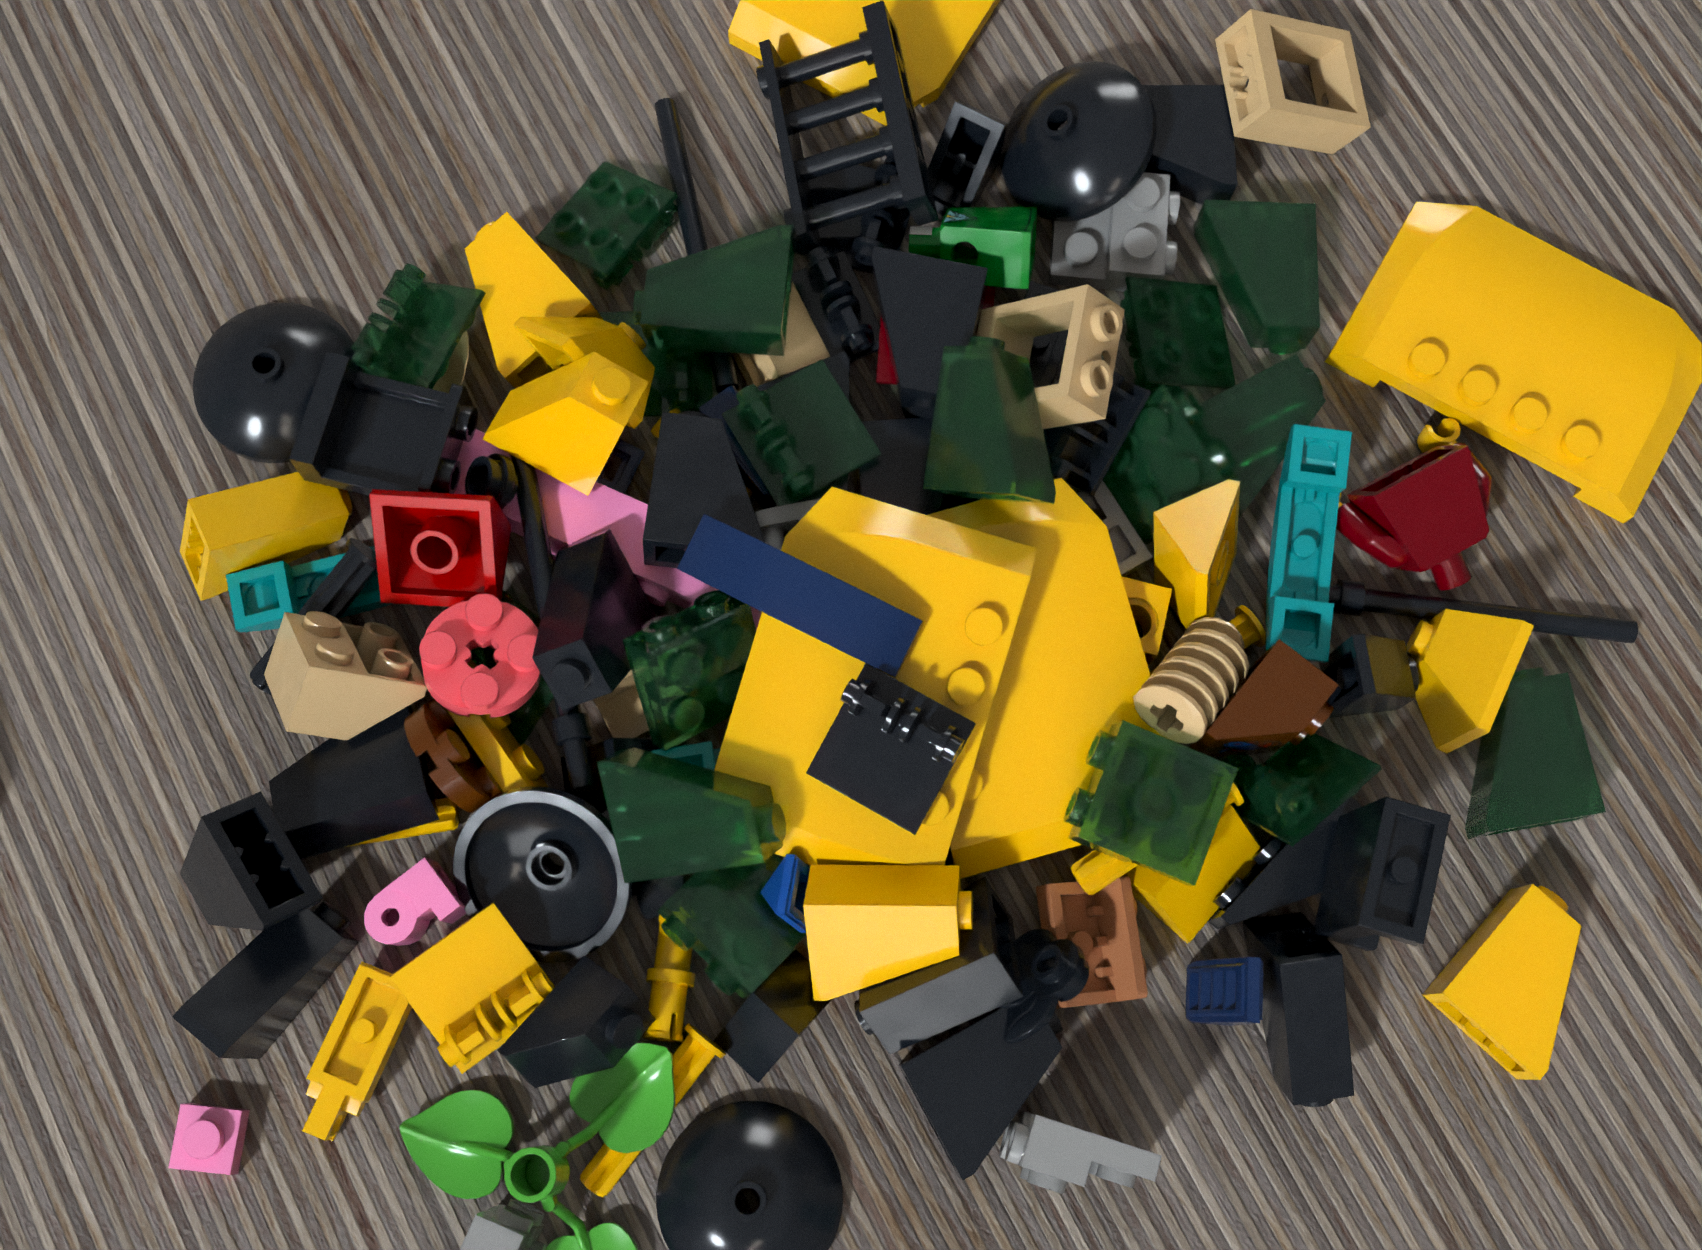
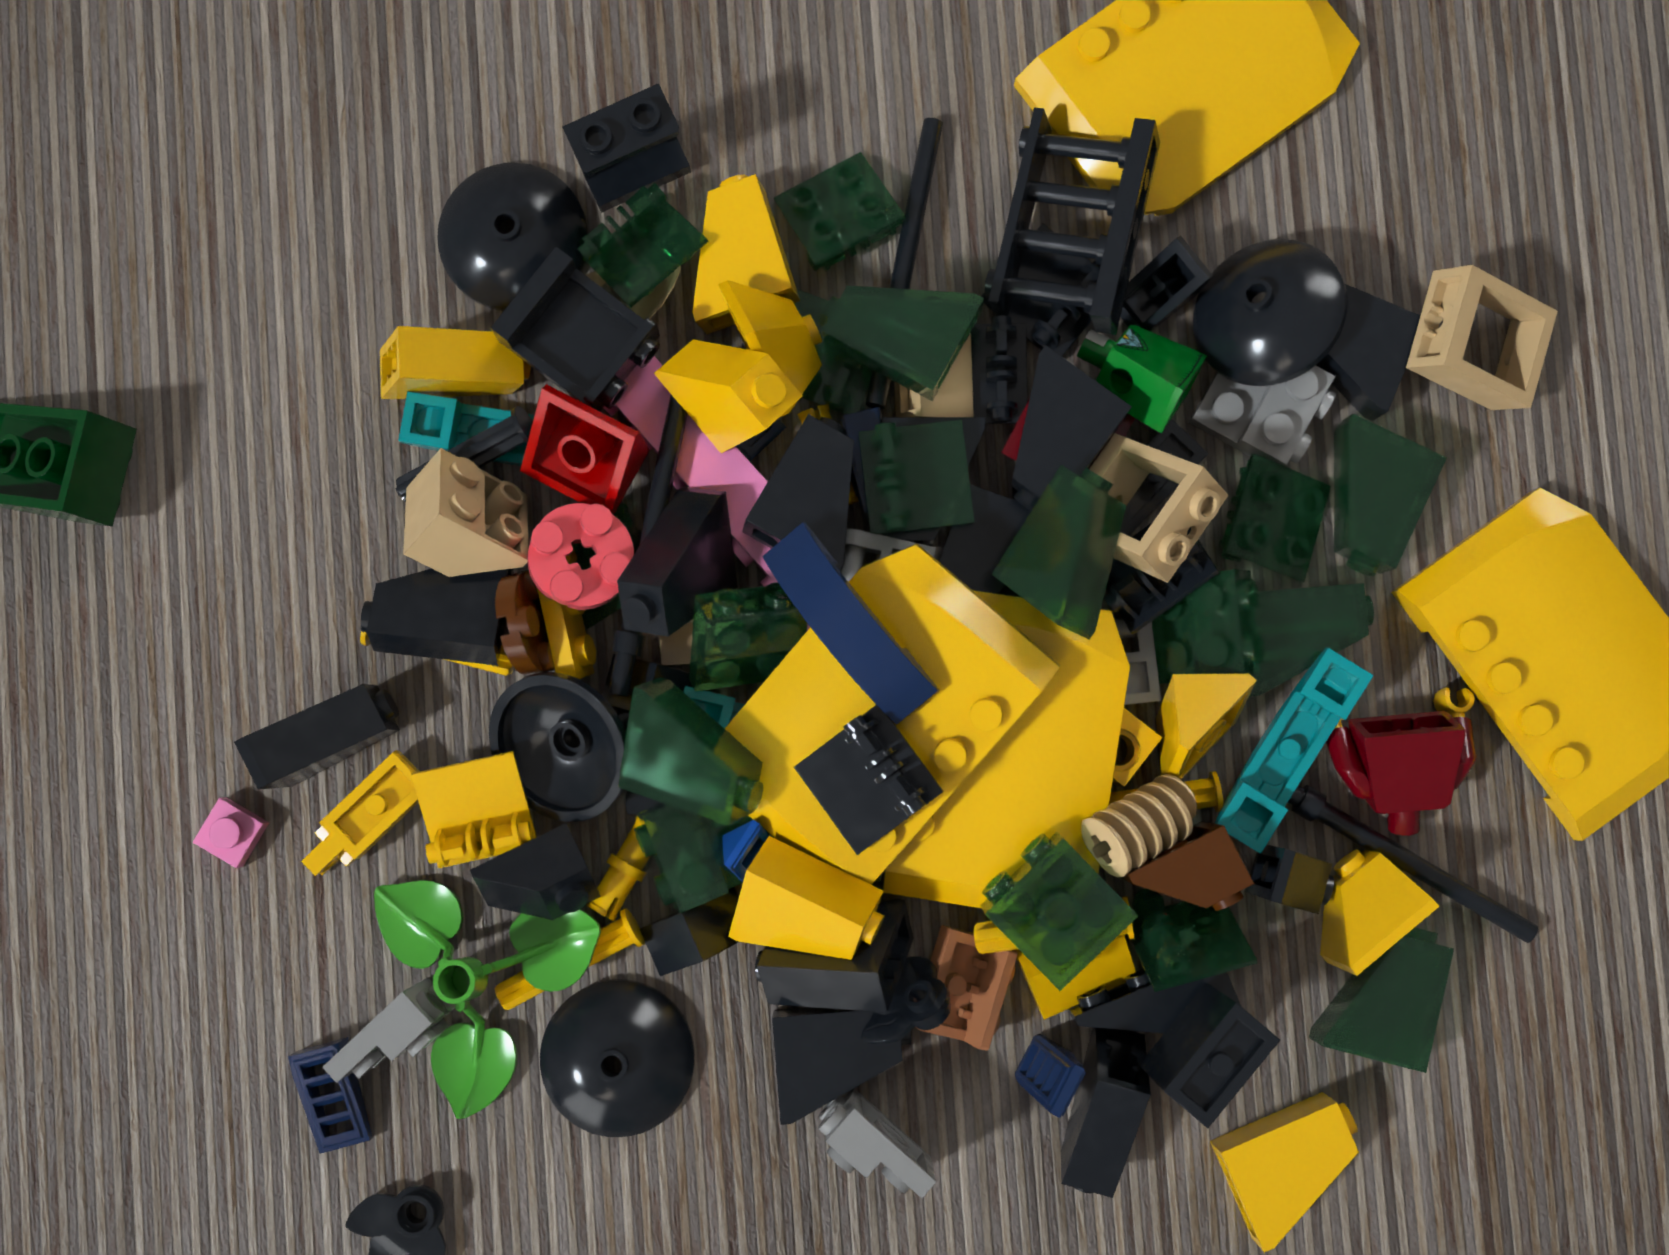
camera: 30 degrees right, 10 degrees up
(246, 868) = (333, 651): black slope -> none
(361, 235) = (628, 147): none -> black panel
(406, 906) = (445, 722): bright pink leg -> none
(492, 477) = (647, 410): black plate -> none

